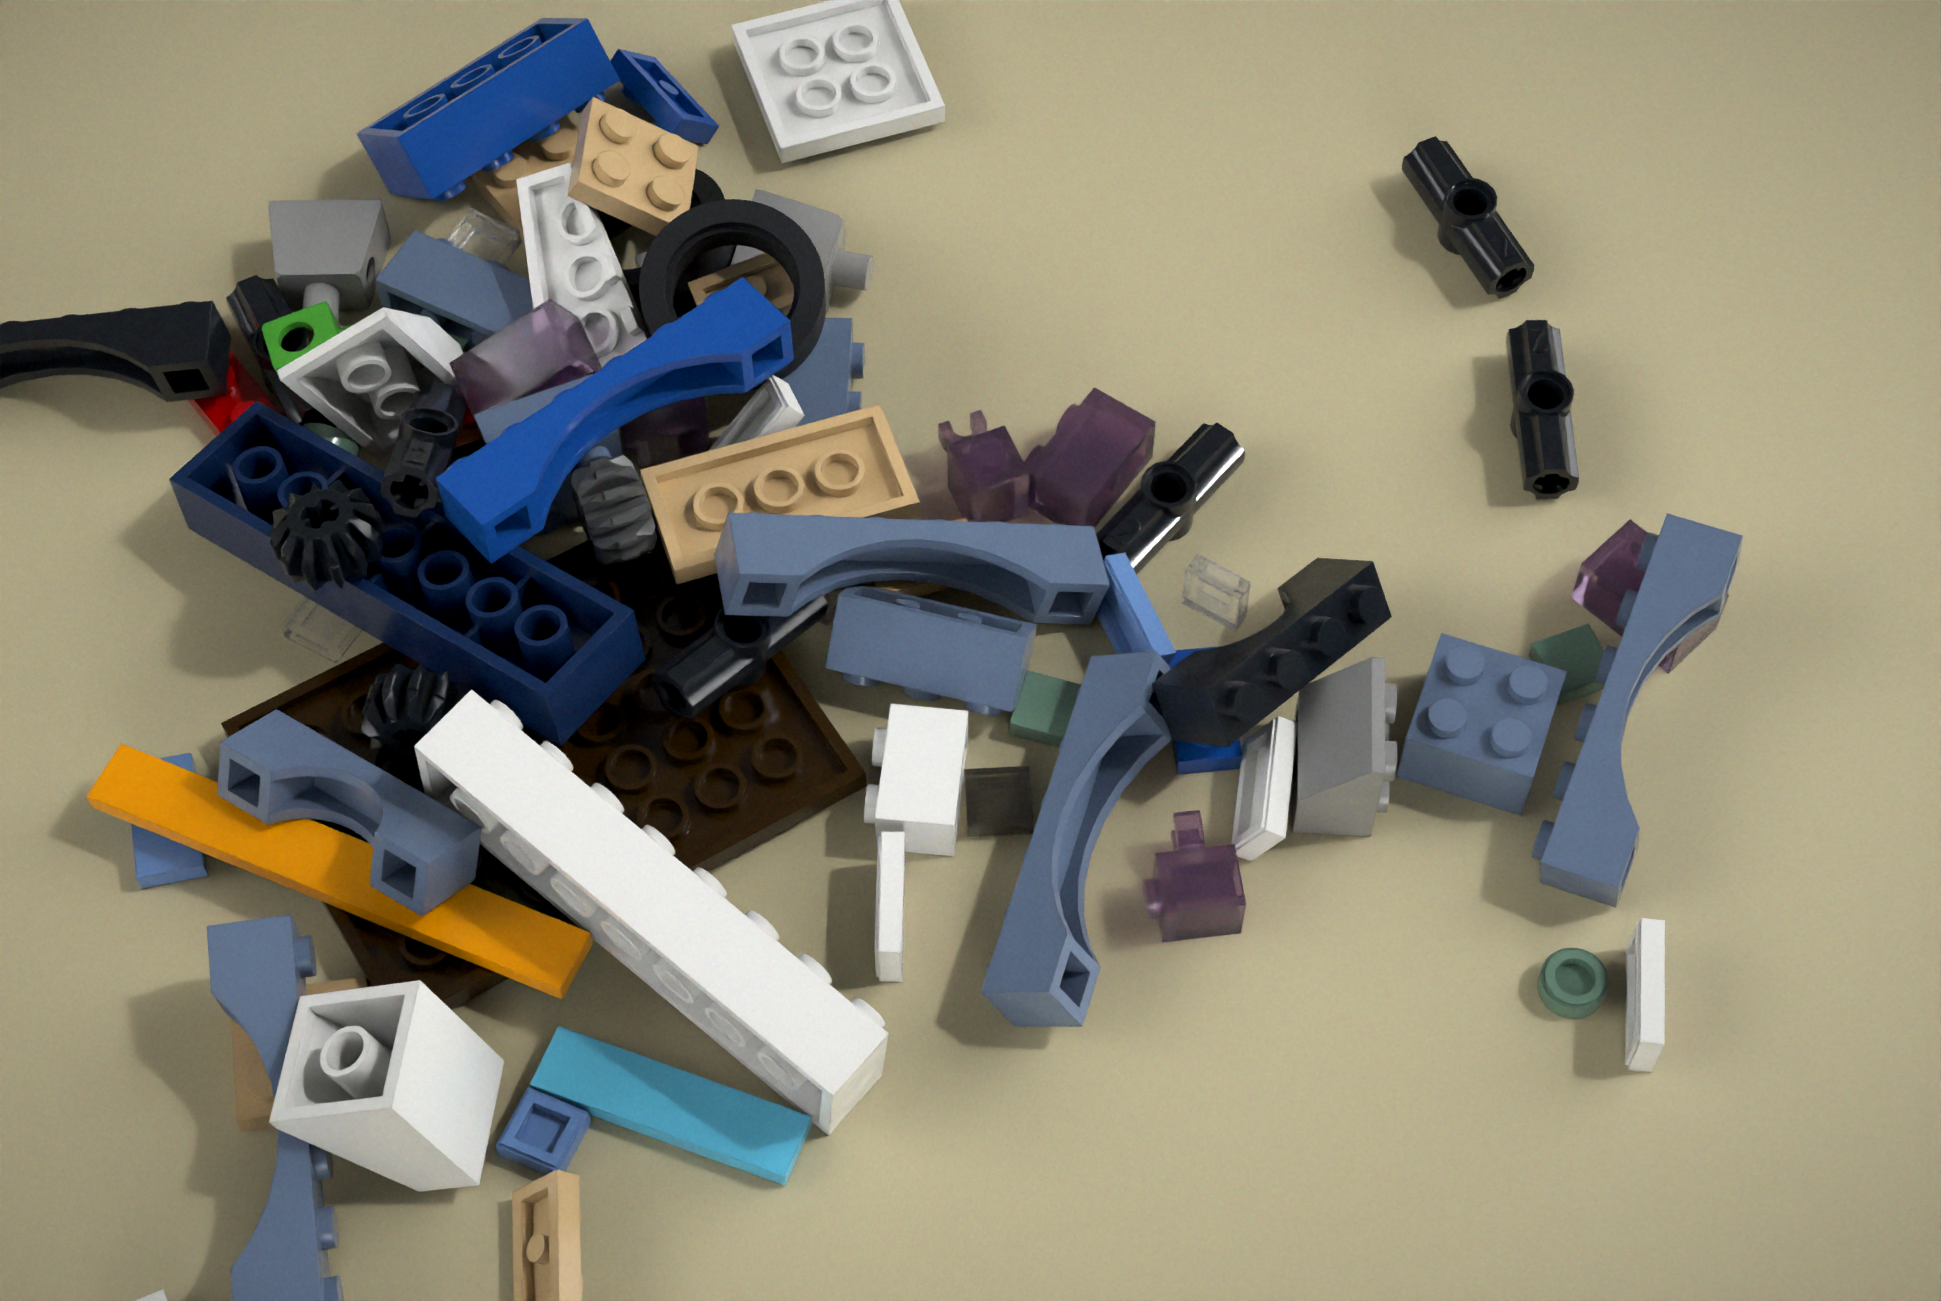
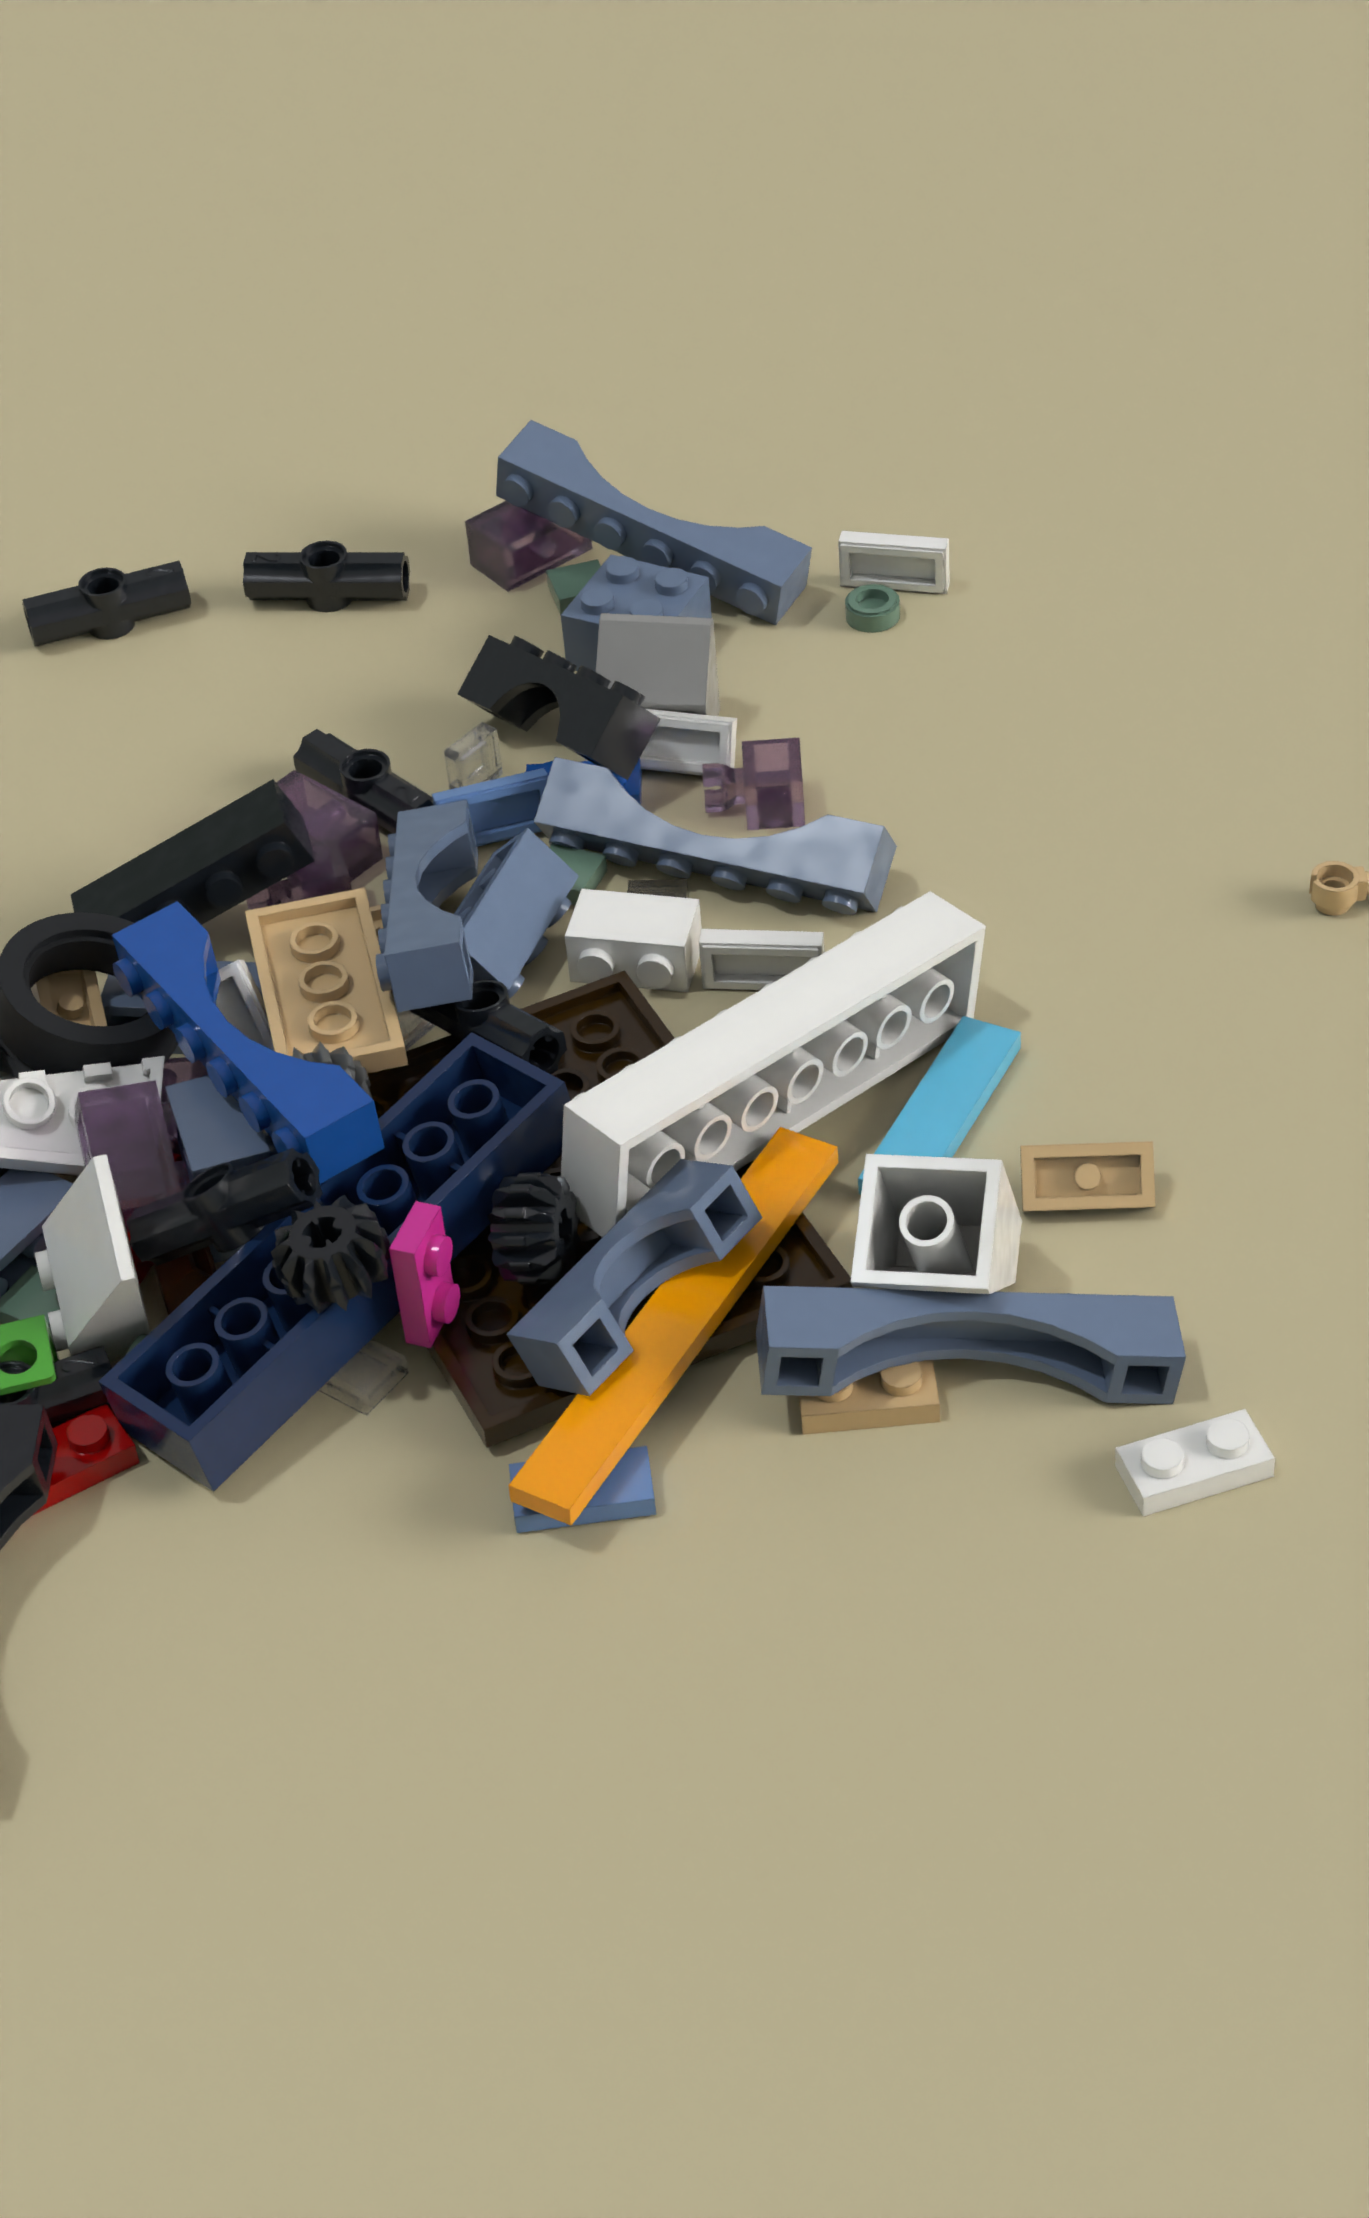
camera: 80 degrees left, 15 degrees down
(351, 627) = (424, 1274): none -> dark pink plate
(958, 360) = (208, 863): none -> black brick

